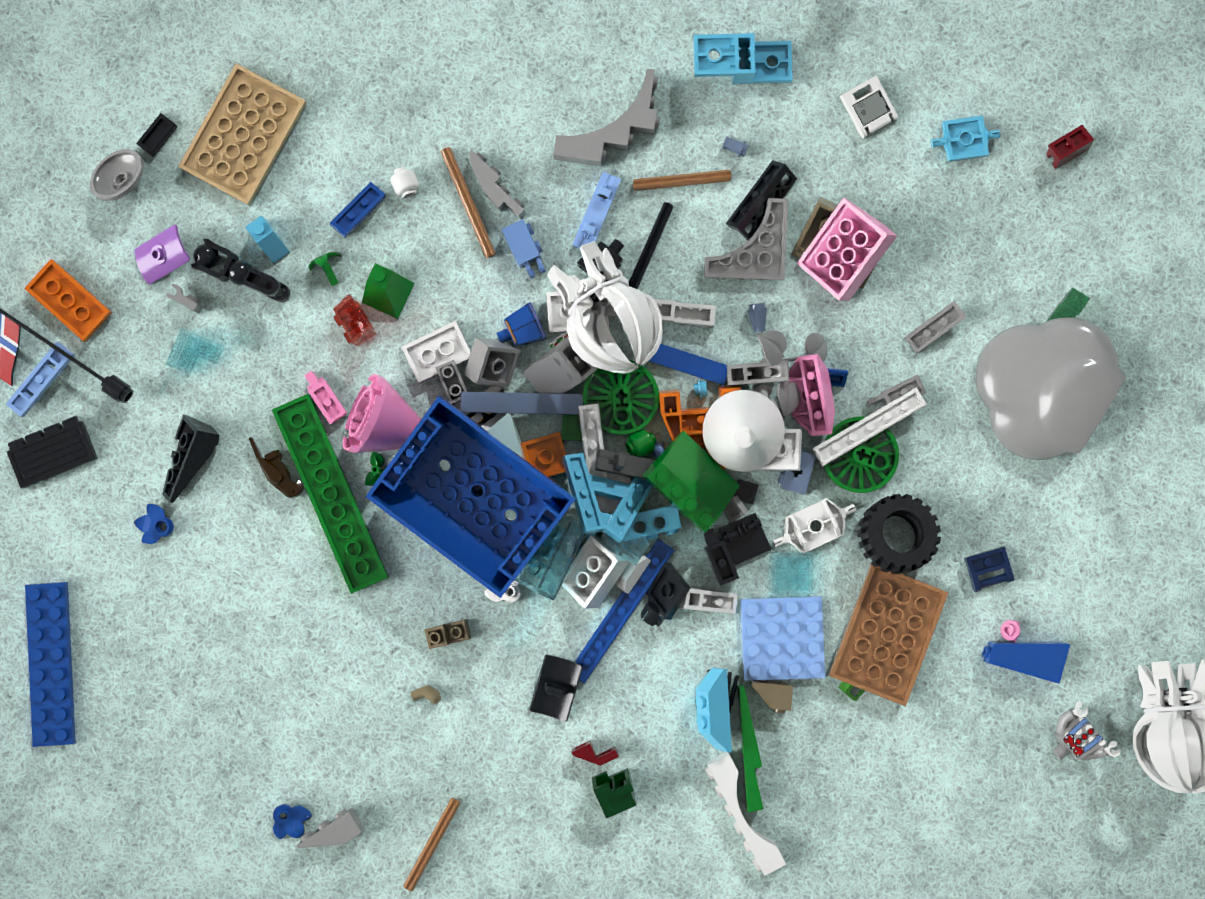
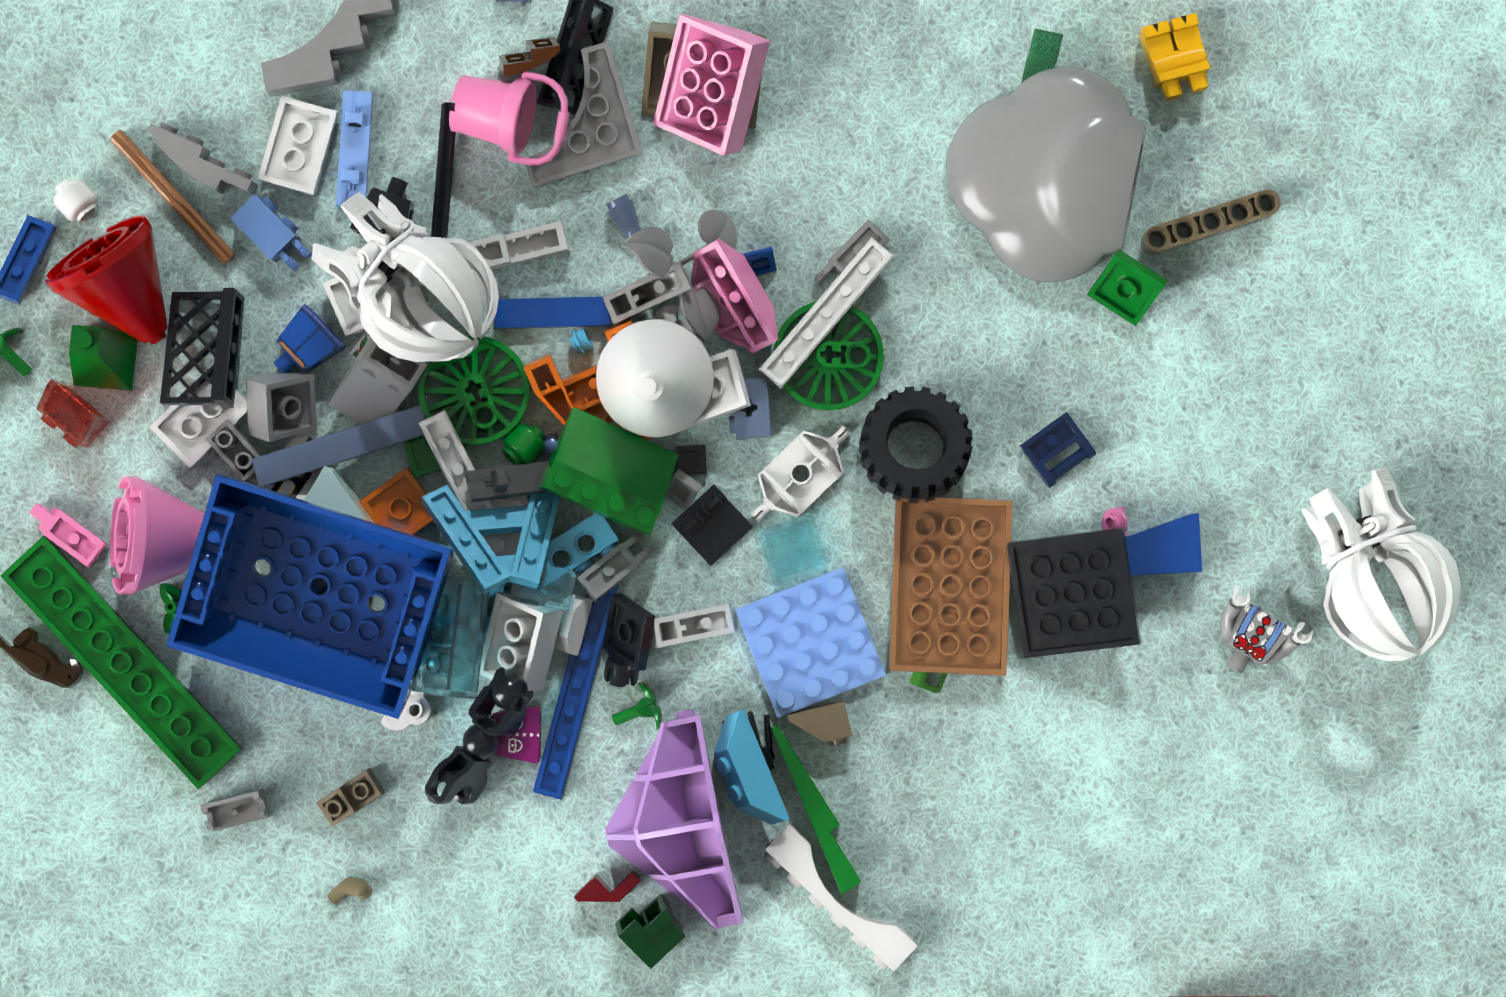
camera: 30 degrees left, 0 degrees up
(370, 615) = (236, 810): none -> light grey hinge
(414, 243) = (116, 279): none -> red cone
(468, 315) = (225, 354): none -> black fence
(546, 629) = (481, 741): none -> black piece
(556, 687) = (524, 818): black shield -> none
(561, 197) = (298, 146): none -> white plate
(568, 630) = (527, 741): none -> magenta torso
(656, 727) = (674, 824): none -> lavender panel
(660, 644) = (645, 708): none -> green plant
(671, 545) = (613, 568): none -> light grey hinge
(682, 180) = (456, 64): medium nougat axle -> none
(703, 221) = (505, 113): none -> bright pink piece
(719, 558) = (684, 563): black hinge -> none
(738, 191) = (537, 53): none -> reddish brown slope
(935, 327) = (870, 146): light grey hinge -> none
(970, 668) = (1074, 592): none -> black plate
(1073, 479) = (1127, 287): none -> green plate
(1152, 457) = (1221, 213): none -> dark tan beam
(1157, 336) = (1176, 55): none -> yellow hips

